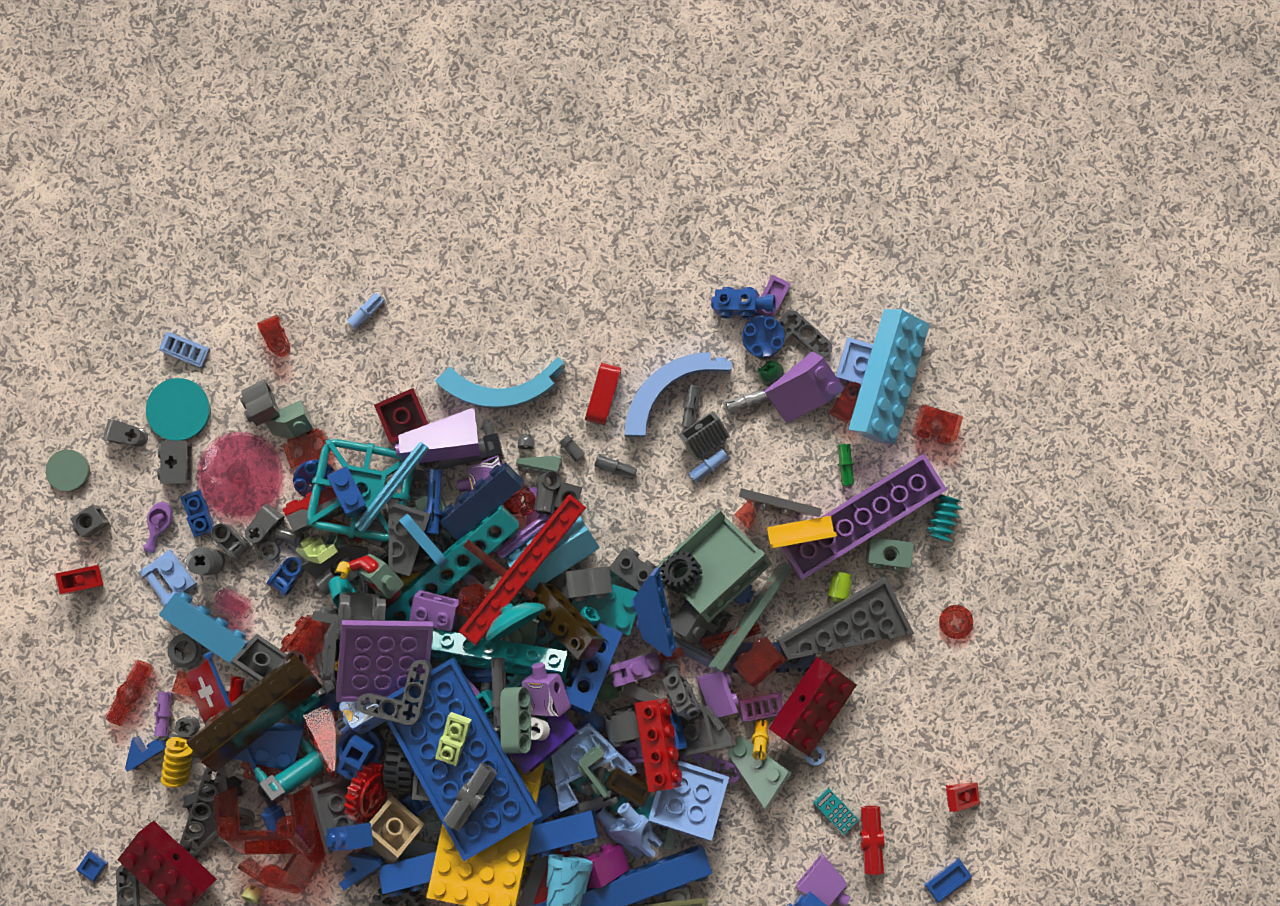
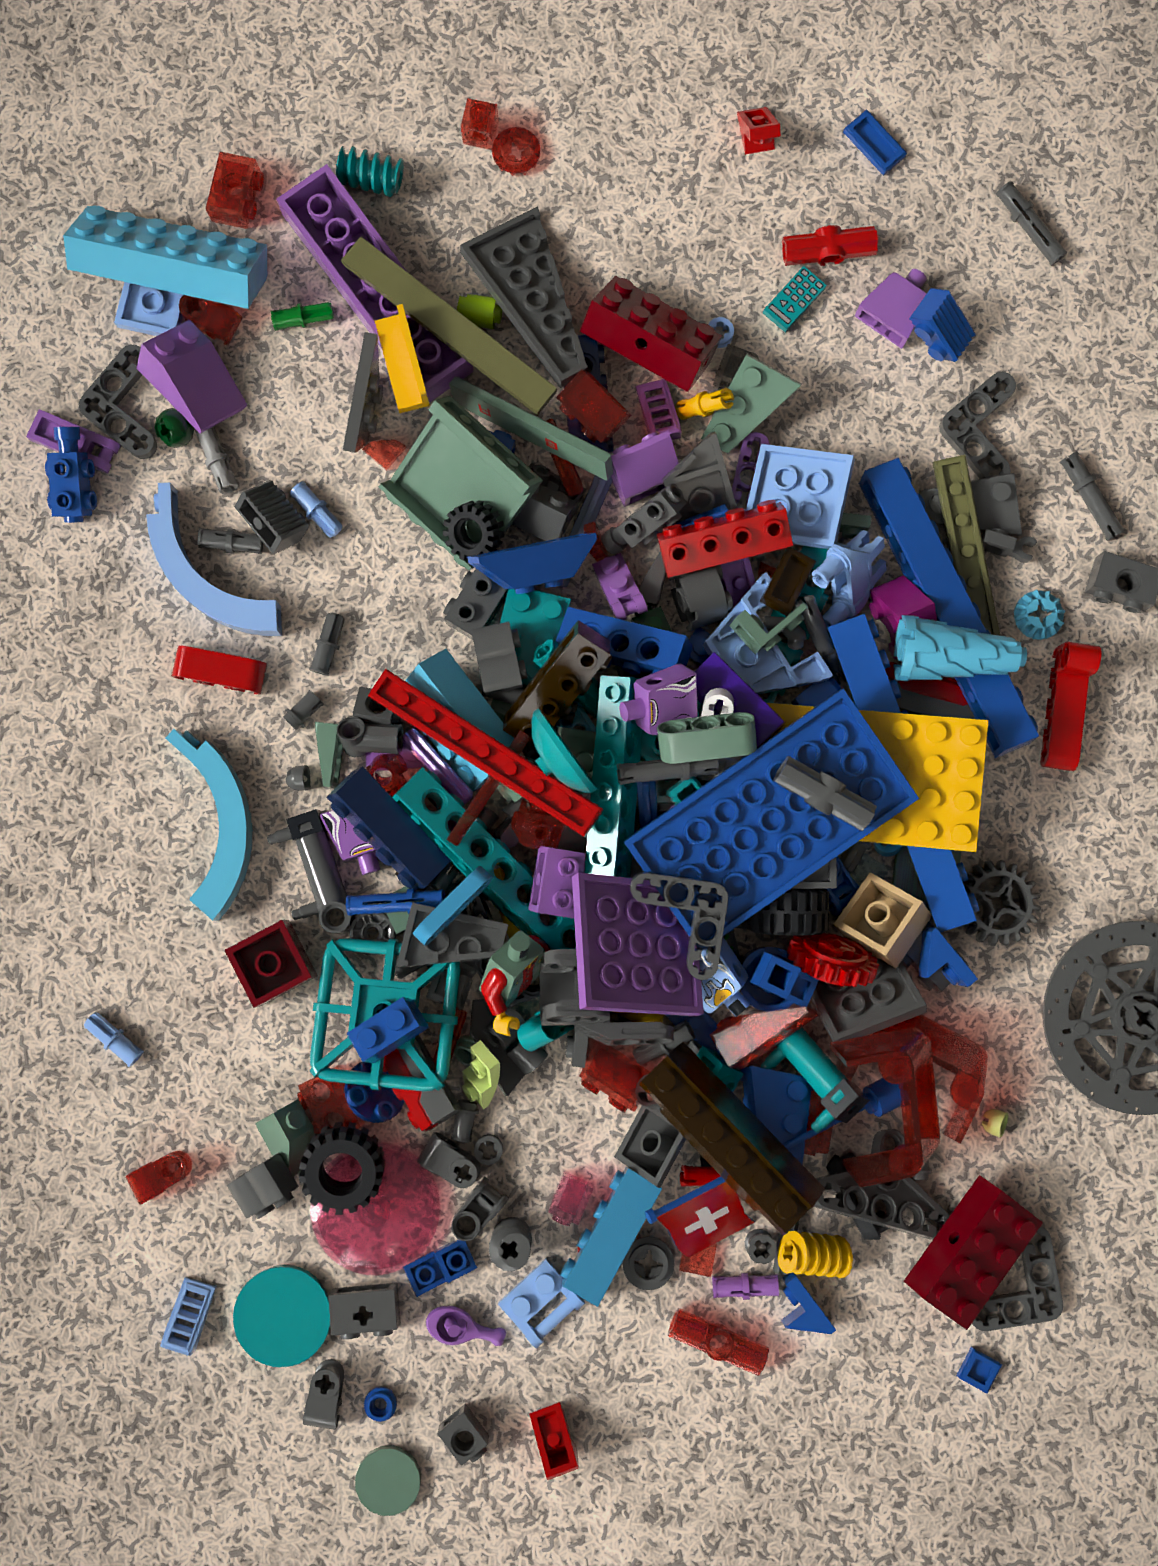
camera: 95 degrees left, 0 degrees up
(109, 468) = (380, 1414): none -> blue plate
(248, 455) = (336, 1193): none -> black tyre
(284, 578) = (525, 1119): blue piece -> none
(349, 837) = (900, 974): blue brick -> none
(391, 487) = (374, 962): medium azure axle -> none
(446, 438) = (301, 899): slope -> none
(453, 738) = (742, 828): yellowish green slope -> none
(763, 336) = (118, 441): blue dish -> none
(824, 566) = (449, 326): none -> olive tile
(902, 554) = (425, 228): sand green brick -> none
(975, 597) = (479, 123): none -> clear red brick

